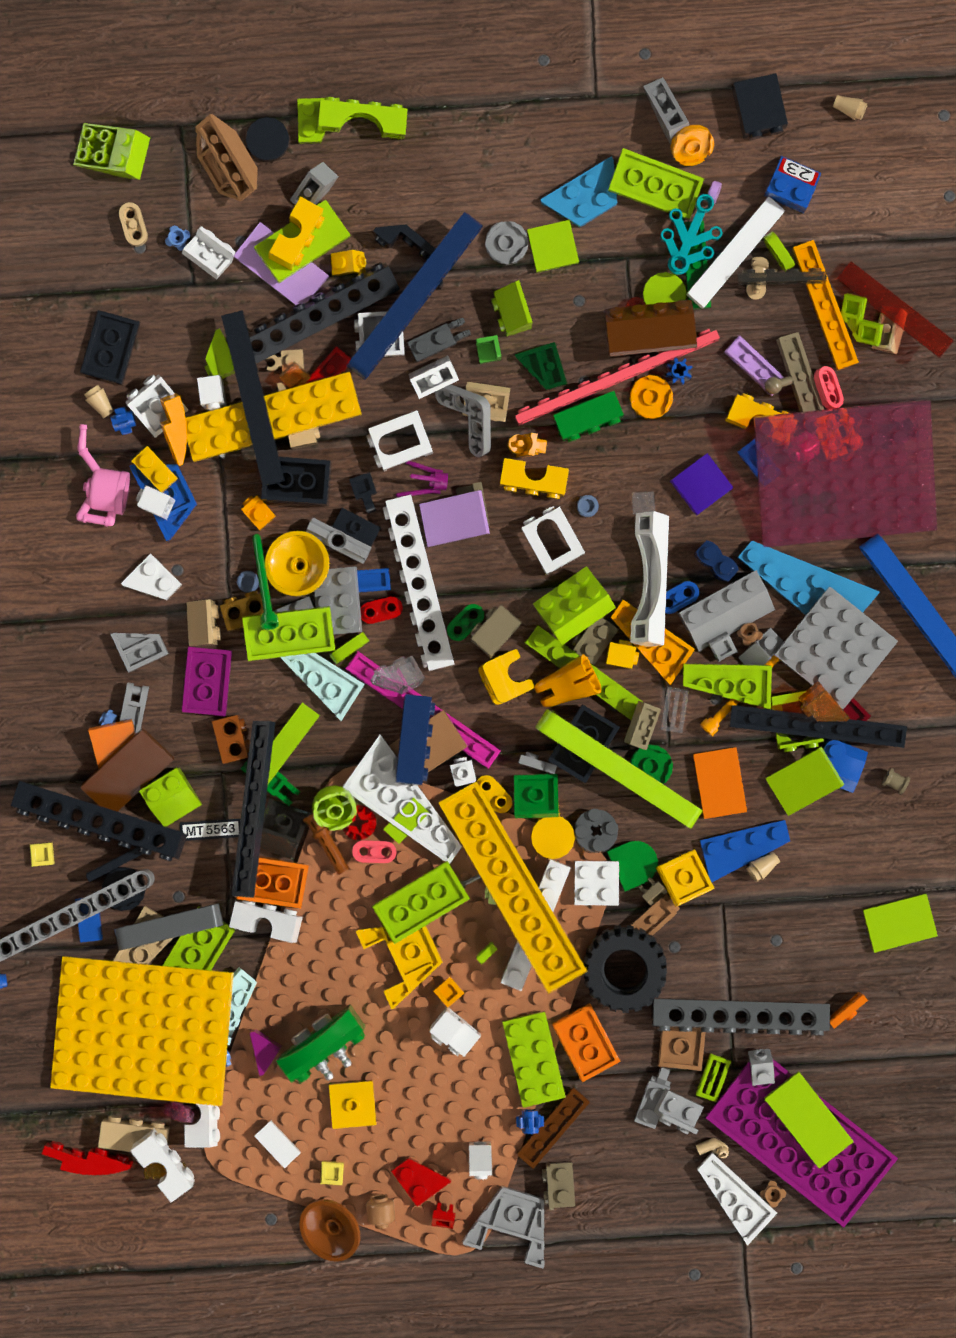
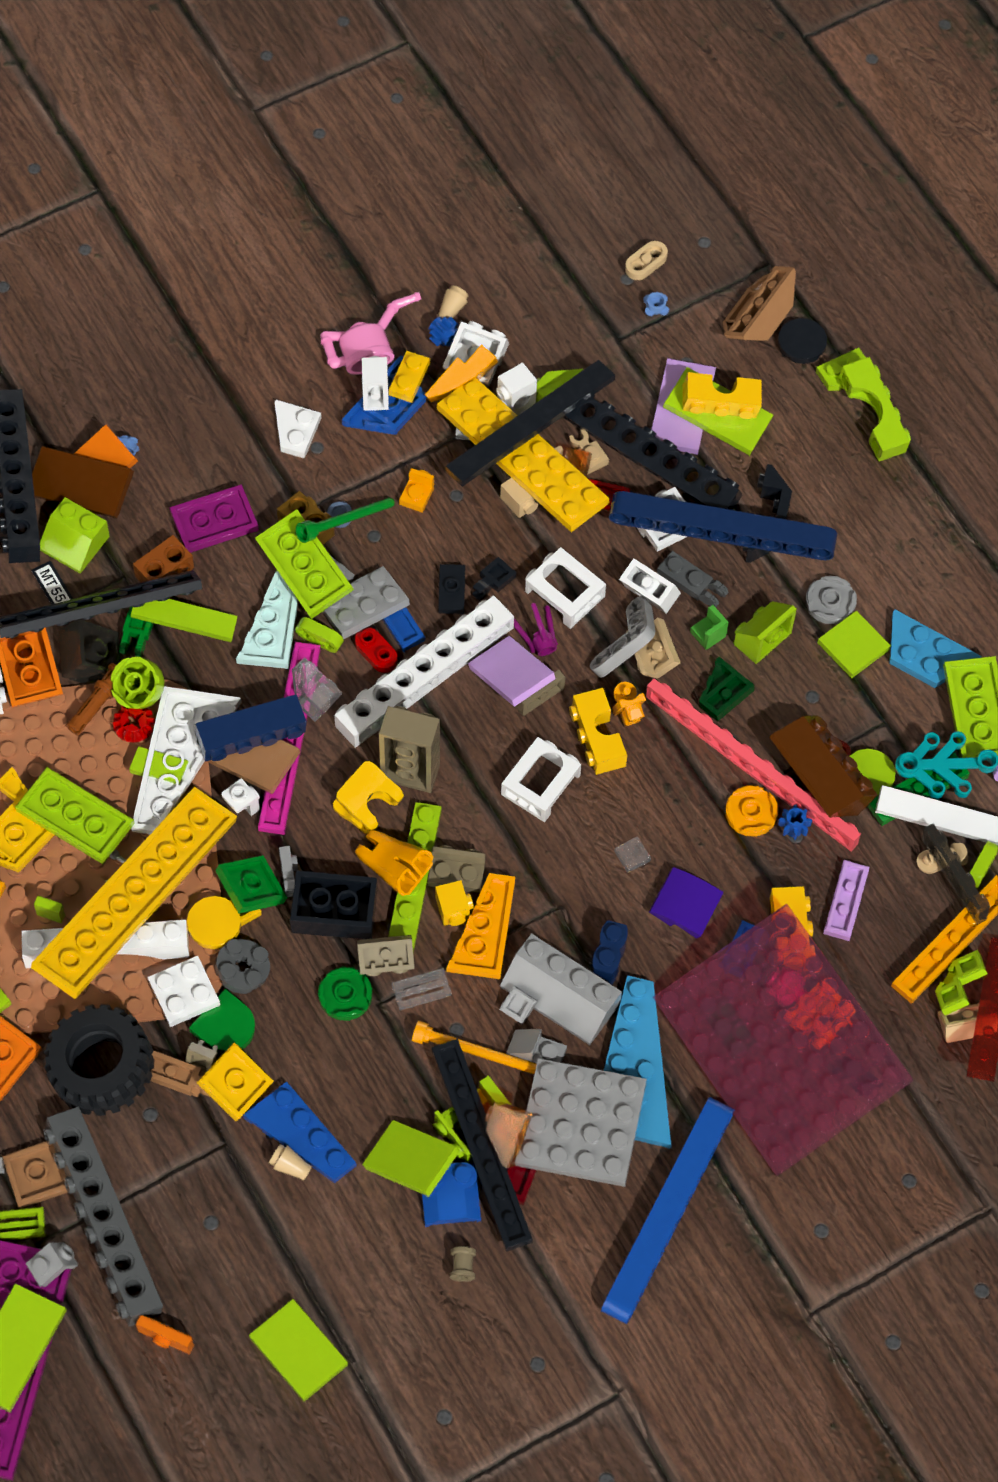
camera: 60 degrees right, 25 degrees down
(110, 347) = (512, 293): black tile -> none
(112, 150) = (708, 213): lime slope -> none
(132, 709) = (149, 467): light grey plate -> none
(139, 649) = (215, 444): light grey wing -> none
(202, 623) = (273, 486): tan slope -> none
(209, 252) = (657, 335): white bracket -> none
(283, 562) = (382, 543): yellow dish -> none
(305, 482) = (469, 511): black brick -> none
(315, 184) = (784, 397): light grey slope -> none
(348, 262) = (723, 461): yellow bracket -> none
(351, 547) = (427, 563): light grey piece -> none
(374, 851) = (110, 751): coral plate -> none
(494, 793) = (233, 844): yellow plate -> none
(574, 605) = (481, 825): lime brick -> none
(587, 506) = (598, 800): sand blue tile -> none
(588, 417) = (694, 754): green brick -> none
(618, 768) = (323, 946): lime beam -> none
(649, 620) = (601, 871): white arch -> none
(678, 598) = (550, 931): blue plate -> none
(720, 783) = (363, 1074): orange tile -> none
(734, 681) = (485, 1031): lime wing -> none
(749, 628) = (549, 1025): medium nougat plate -> none
(798, 372) = (866, 943): dark tan plate -> none
(828, 388) = (866, 985): coral plate -> none

